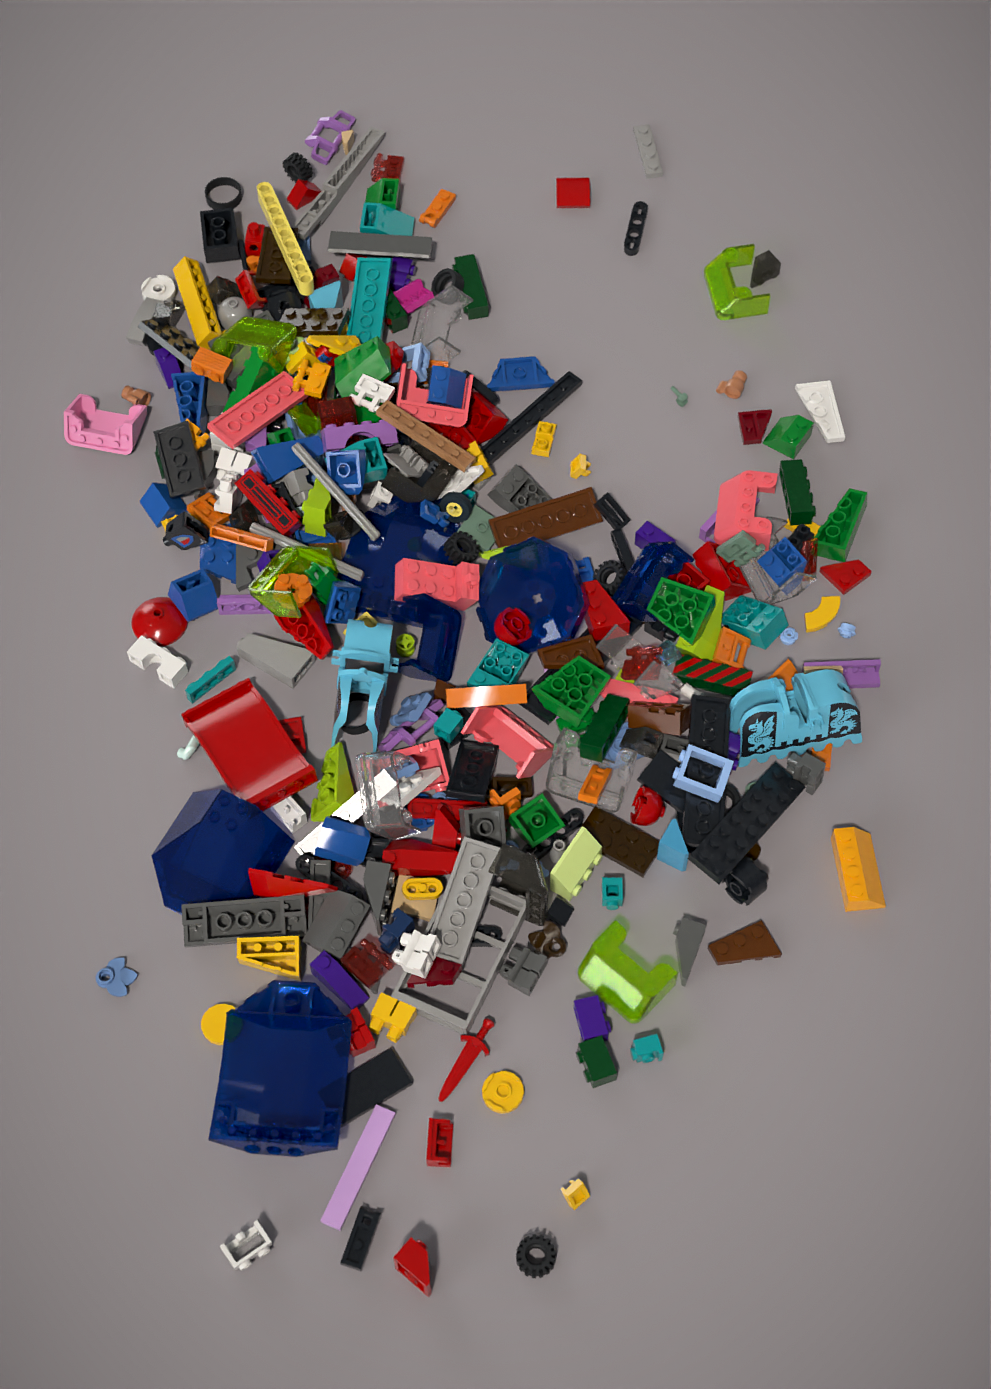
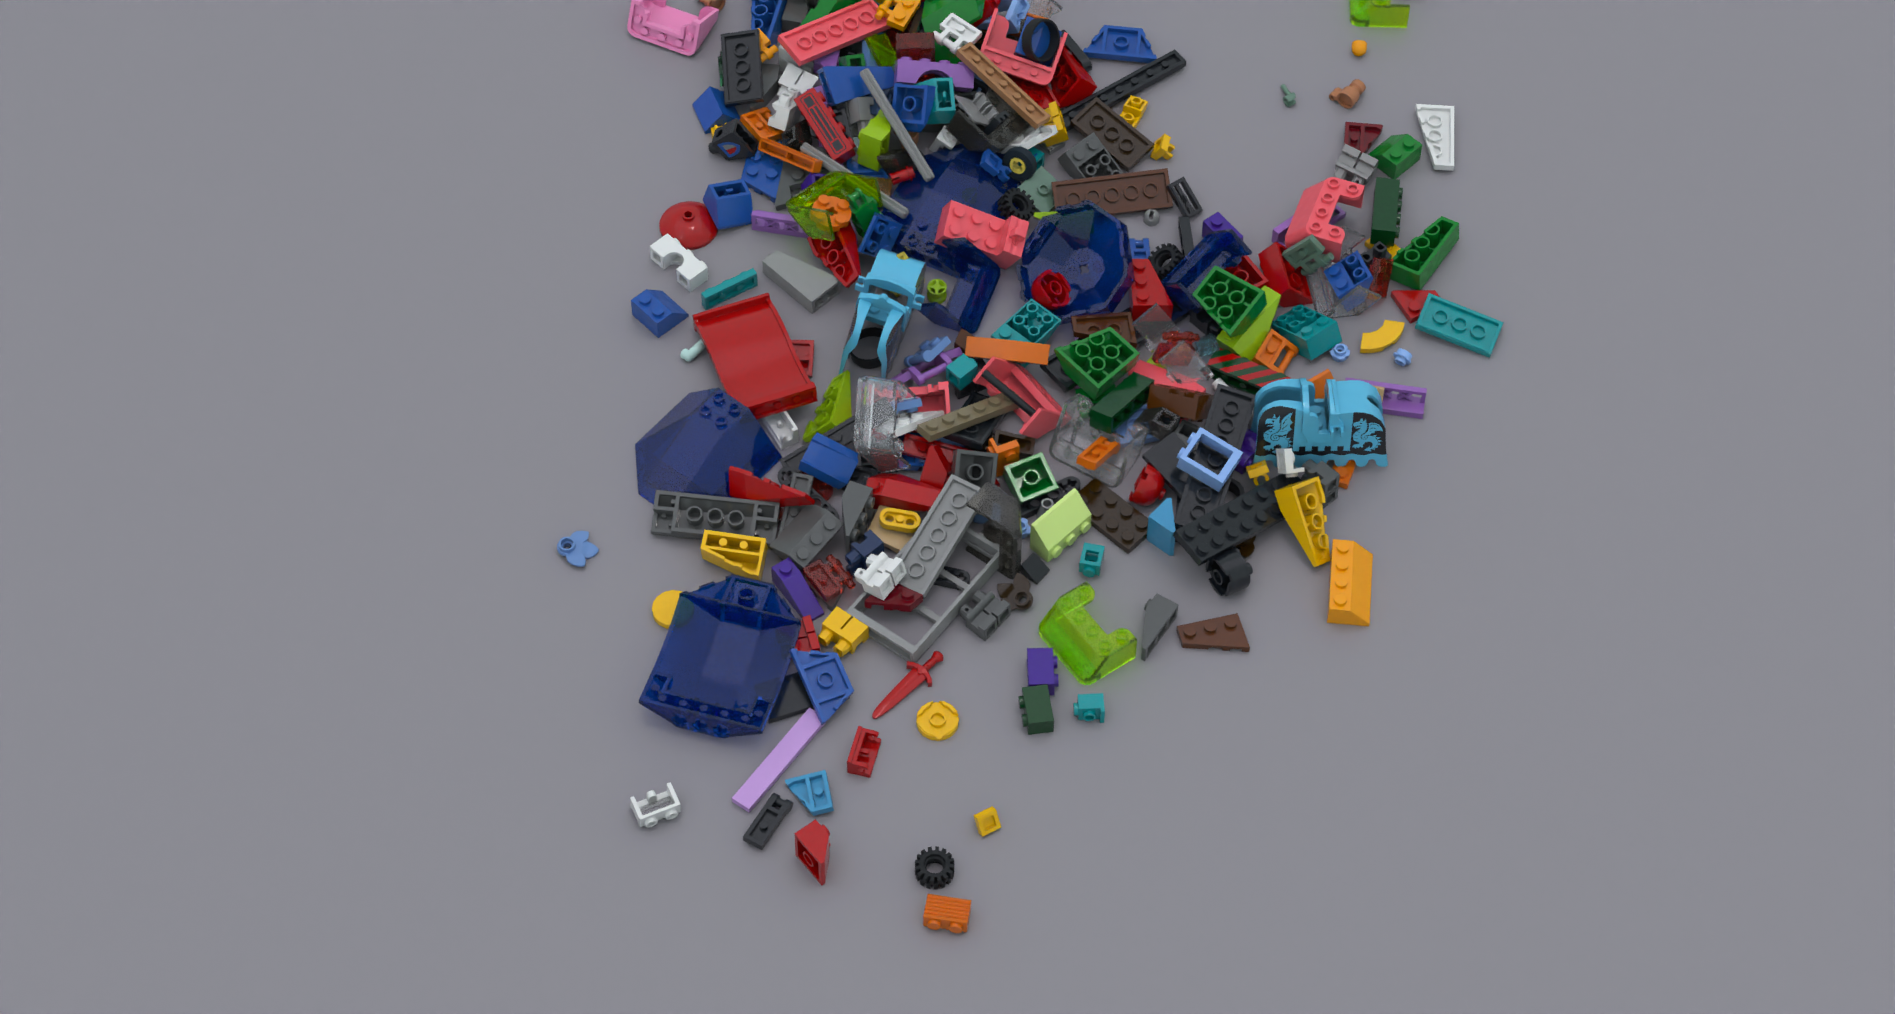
camera: 10 degrees right, 5 degrees down
(147, 714) = (657, 311): none -> blue slope
(350, 538) = (903, 175): none -> red pin
(385, 1076) = (823, 680): none -> blue wing
(399, 1197) = (812, 792): none -> dark azure wing
(461, 385) = (1027, 38): none -> black tyre
(465, 768) = (966, 417): none -> dark tan plate
(498, 739) = (1008, 393): none -> black bar
(538, 463) = (1119, 137): none -> dark brown plate
(559, 1306) = (947, 913): none -> orange brick
(585, 540) = (1151, 222): none -> light grey hinge
(731, 340) = (1359, 47): none -> light orange hinge
(745, 771) = (1258, 469): none -> yellow tile
(749, 453) = (1349, 166): none -> light grey hips
(772, 760) = (1285, 462): none -> white bracket
(798, 804) = (1303, 511): none -> yellow wedge
(890, 589) = (1459, 325): none -> teal tile

